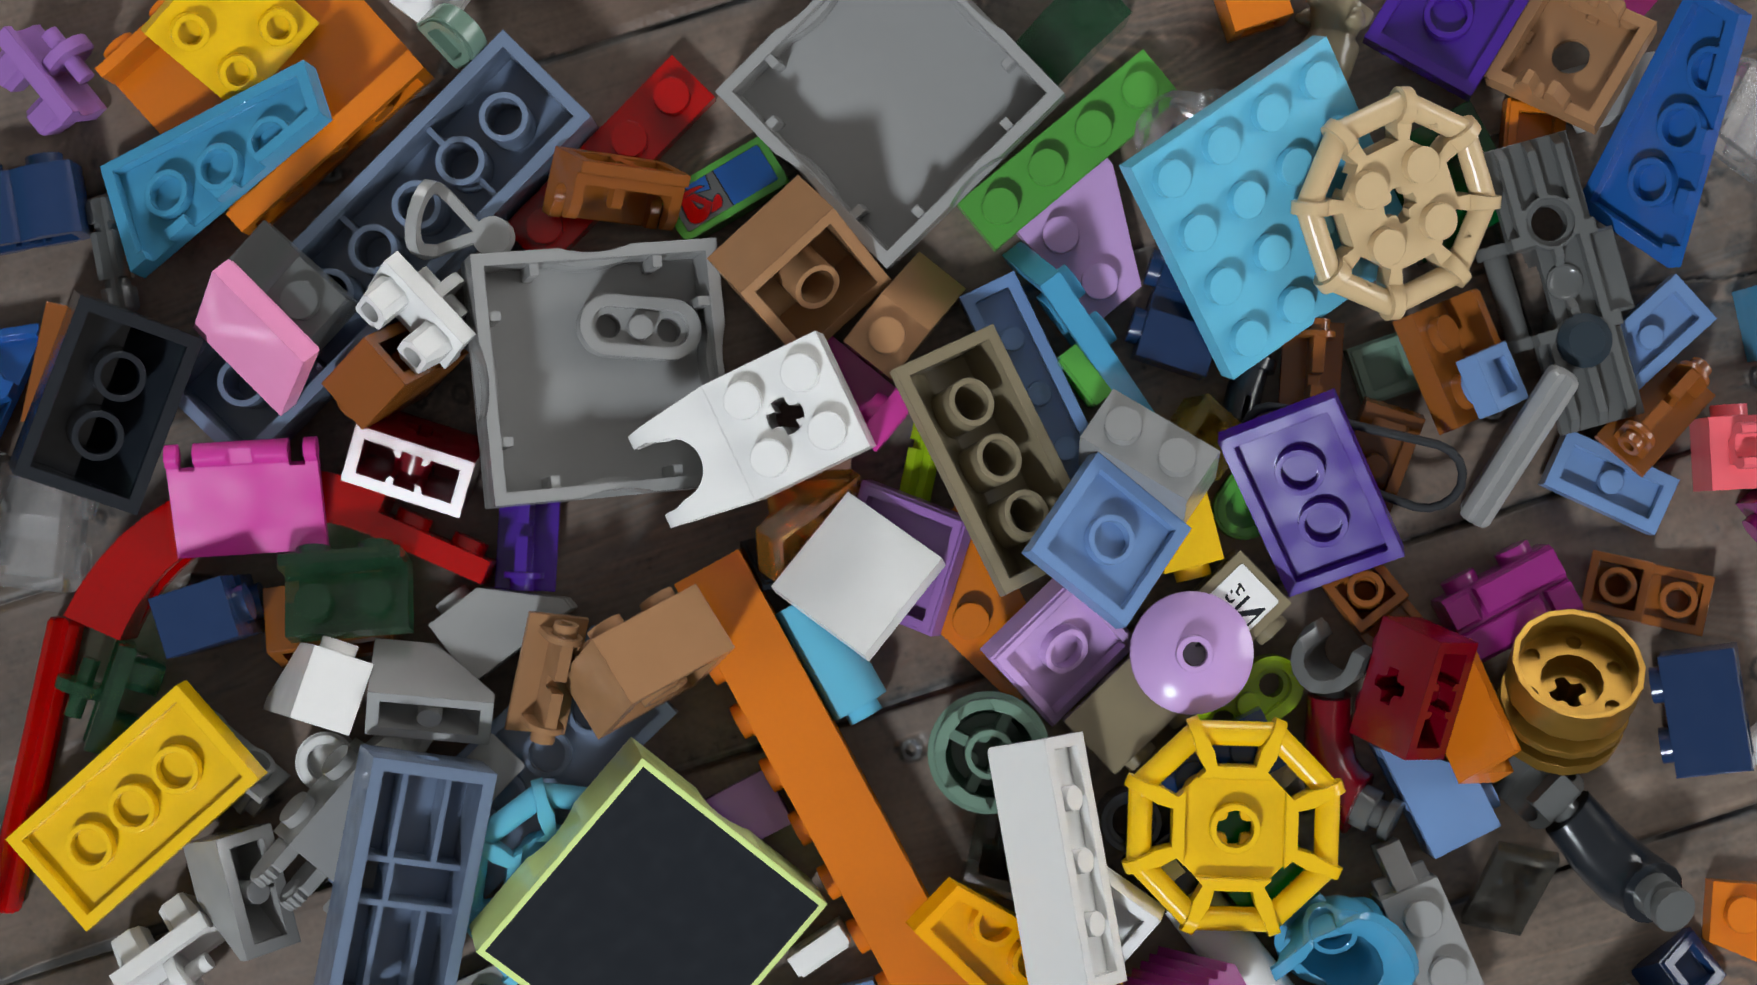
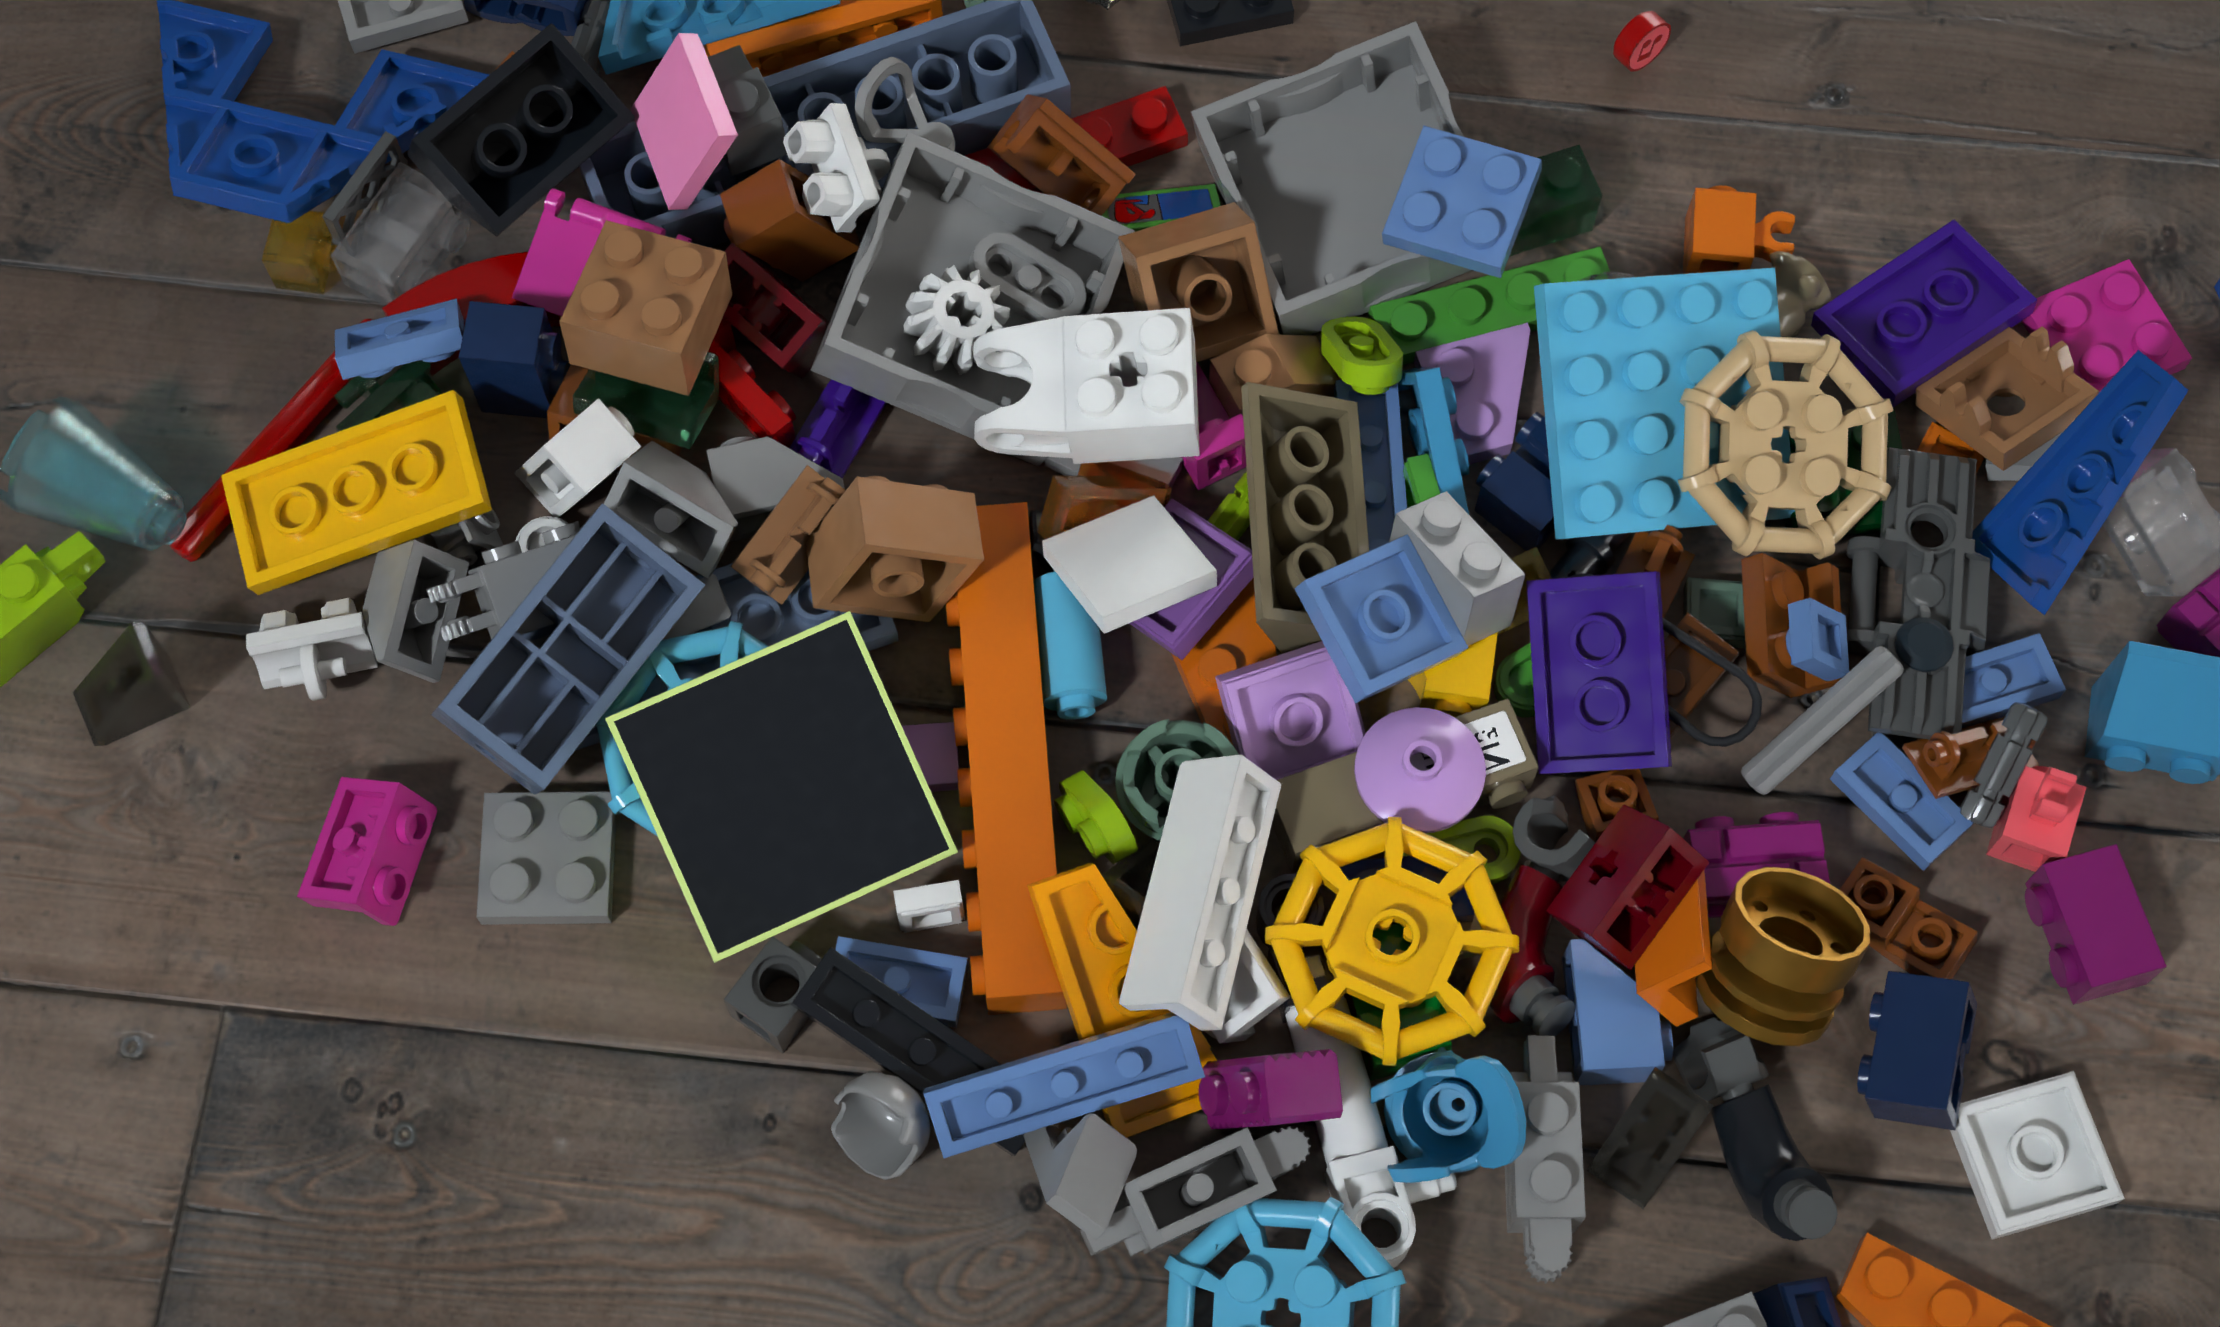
camera: 20 degrees right, 20 degrees down
(99, 652) = (399, 339): none -> medium blue plate
(315, 540) = (646, 307): none -> medium nougat brick
(595, 381) = (944, 333): none -> white gear
(913, 804) = (1096, 817): none -> lime plate
(973, 263) = (1362, 354): none -> lime plate
(1012, 91) = (1462, 201): none -> medium blue plate
(1692, 425) = (2003, 765): none -> dark grey axle

